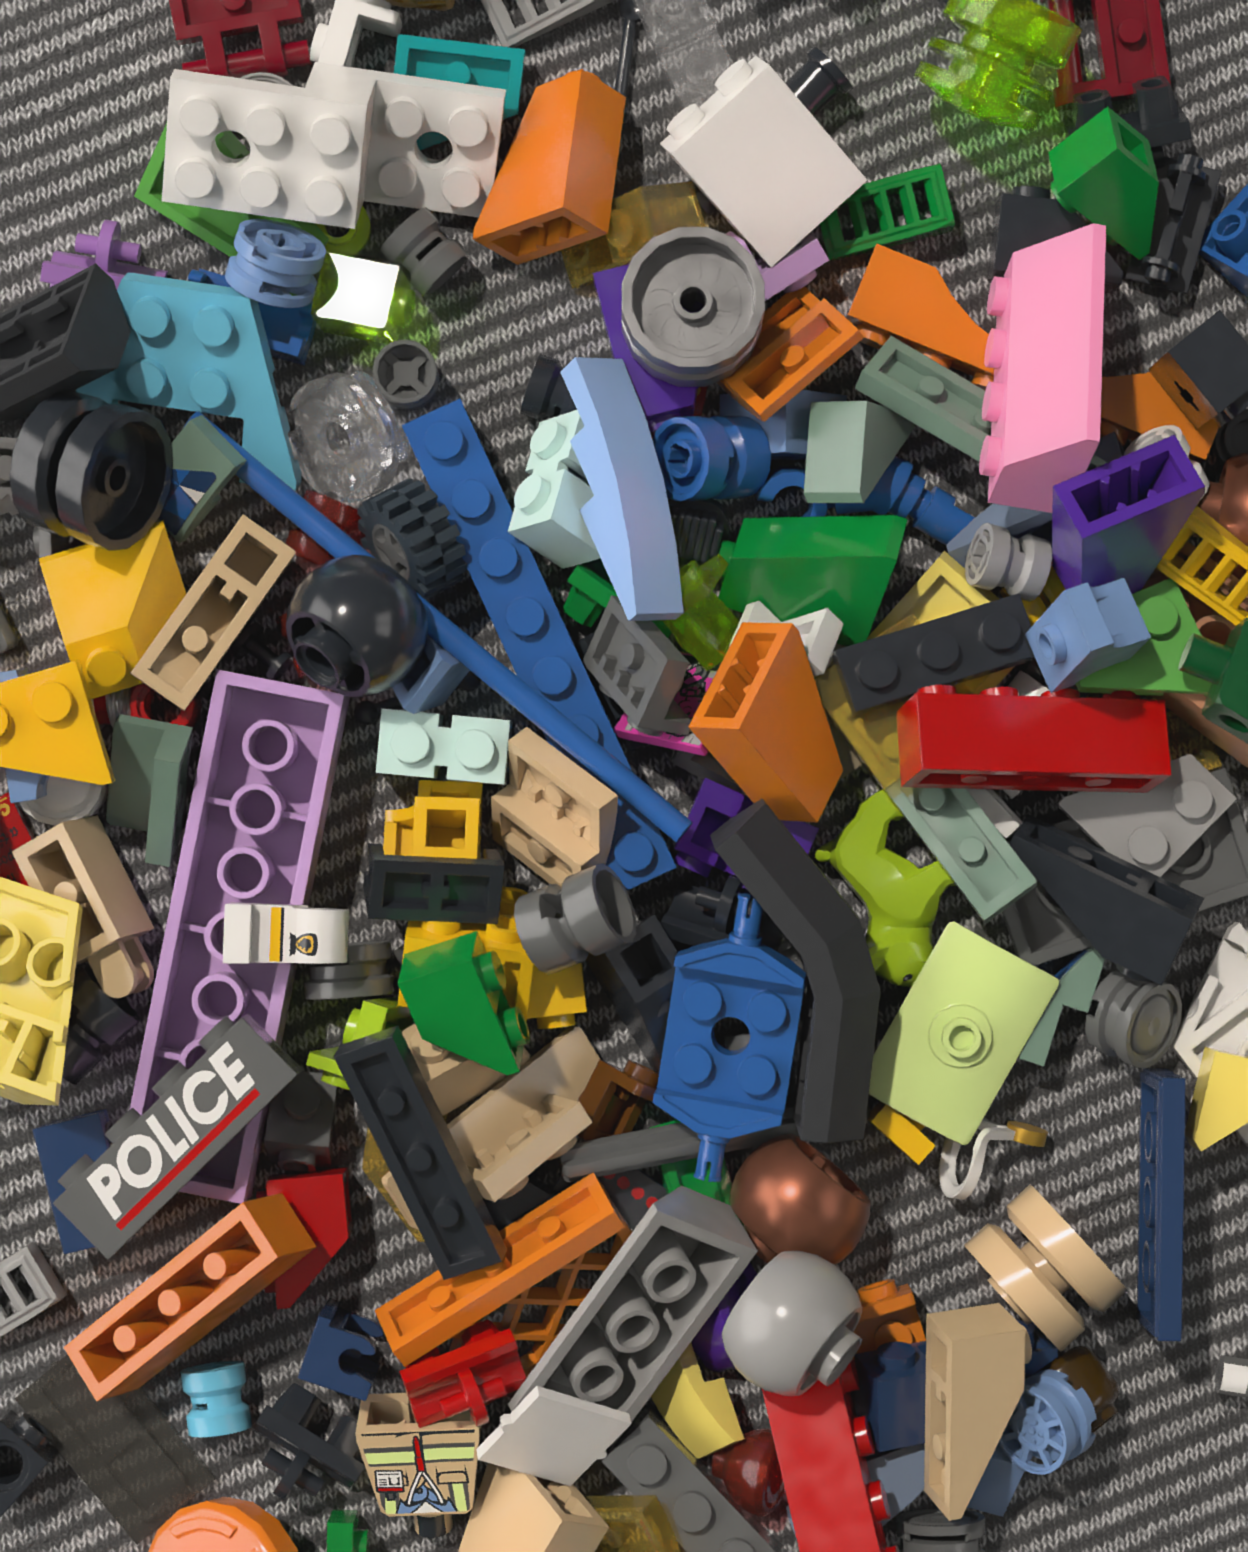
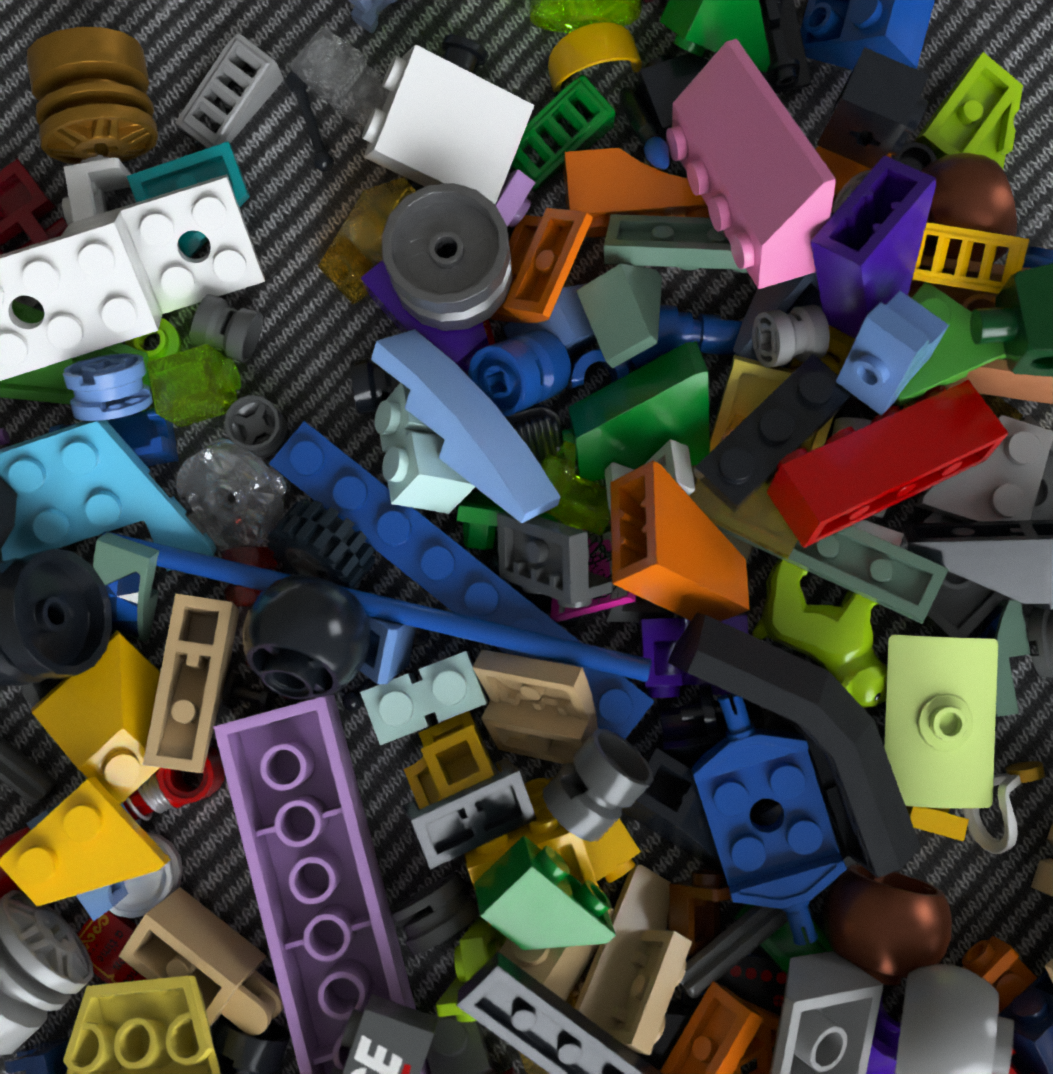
camera: 25 degrees left, 5 degrees down
(150, 782) = (206, 841): sand green panel -> none
(284, 934) = (366, 917): white leg -> none
(557, 171) = (296, 218): orange slope -> none
(965, 144) = (589, 47): none -> yellow helmet
(974, 288) = (655, 148): none -> black piece

